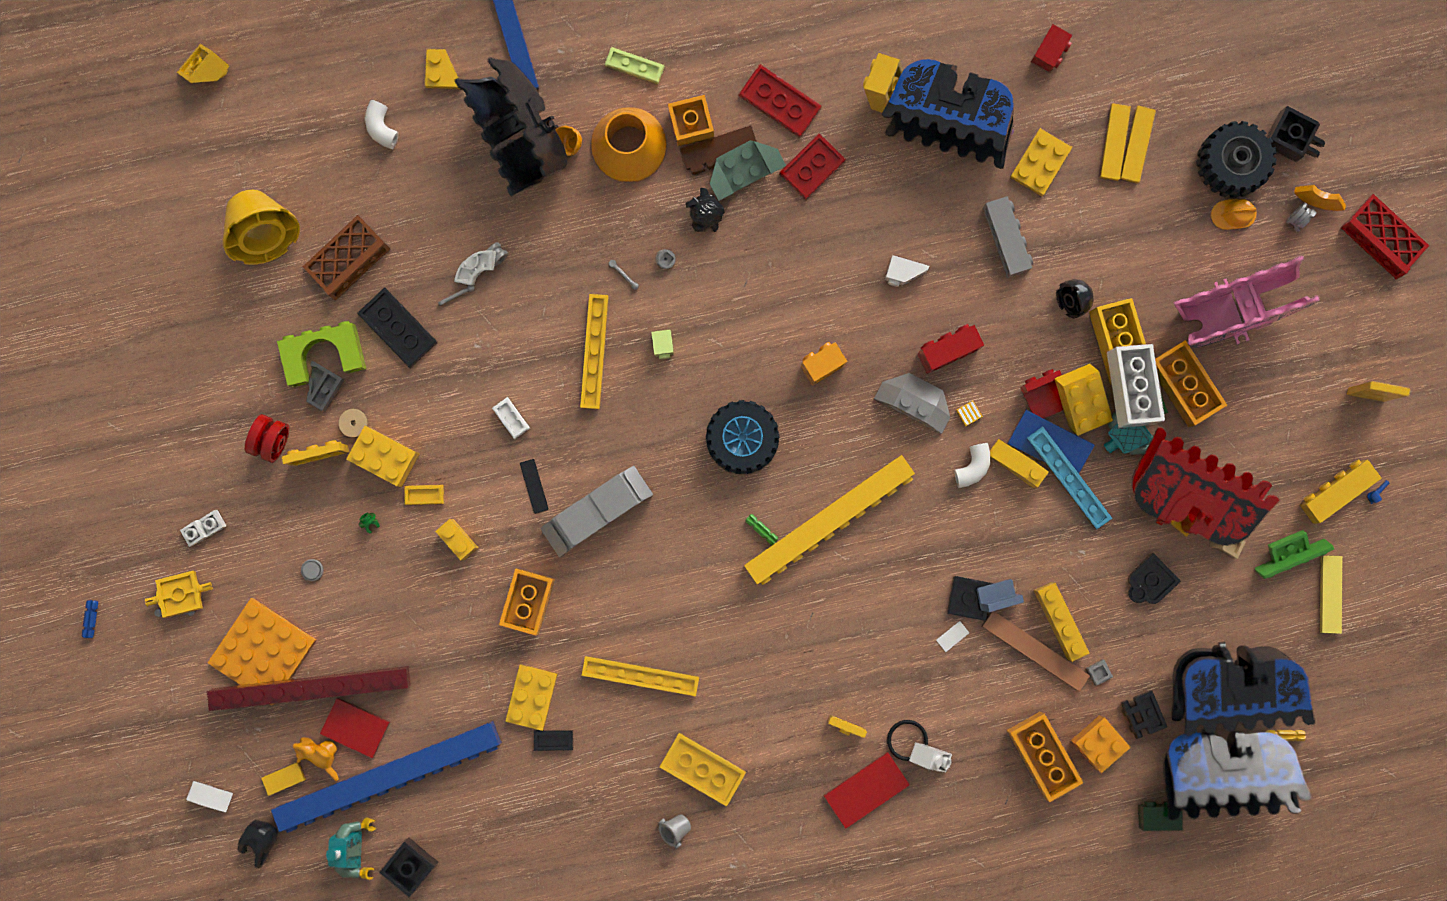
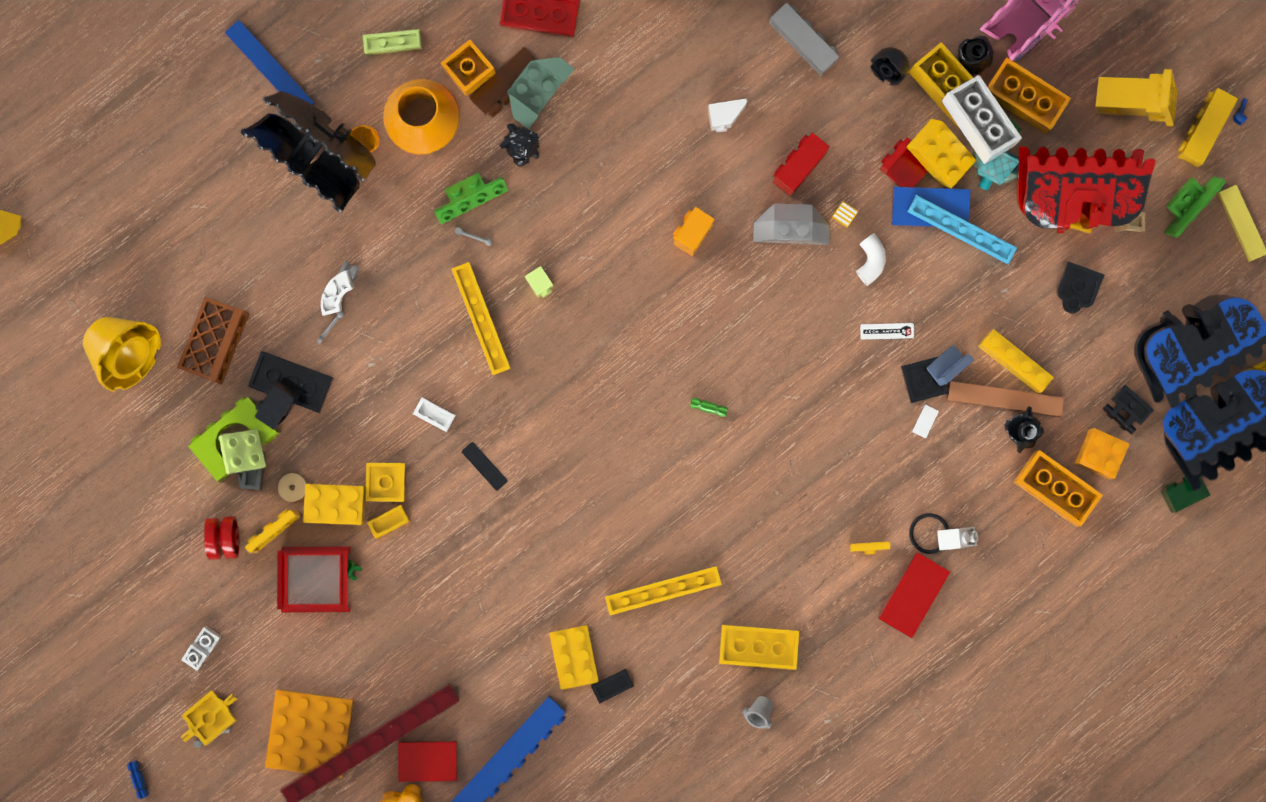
camera: 30 degrees left, 0 degrees up
(312, 570) = (319, 638): light grey piece -> none
(321, 369) = (242, 451): none -> yellowish green plate
(330, 514) = (313, 579): none -> piece
(375, 125) = (183, 208): white cylinder -> none
(375, 341) = (278, 402): none -> black brick
(438, 458) = (385, 482): none -> yellow plate
(439, 70) = (217, 130): yellow wing -> none
(456, 539) = (438, 547): yellow brick -> none
(526, 601) = (529, 572): light orange brick -> none
(596, 510) = (552, 461): light grey windscreen -> none
(636, 235) = (468, 195): none -> bright green bracket
(665, 258) = (504, 204): light grey tile -> none
(742, 437) = (652, 332): black wheel -> none
(812, 166) = (597, 58): red tile -> none
(829, 519) = (763, 373): yellow brick -> none
(957, 537) = (887, 331): none -> white sticker
(1018, 464) = (910, 239): yellow slope -> none
(1039, 688) = (1024, 430): none -> black hair
(1099, 672) = (1070, 391): light grey tile -> none
(1158, 324) = (975, 54): none -> black hair
(1291, 433) = (1139, 96): none -> yellow brick
(1378, 391) = (1198, 22): yellow tile -> none

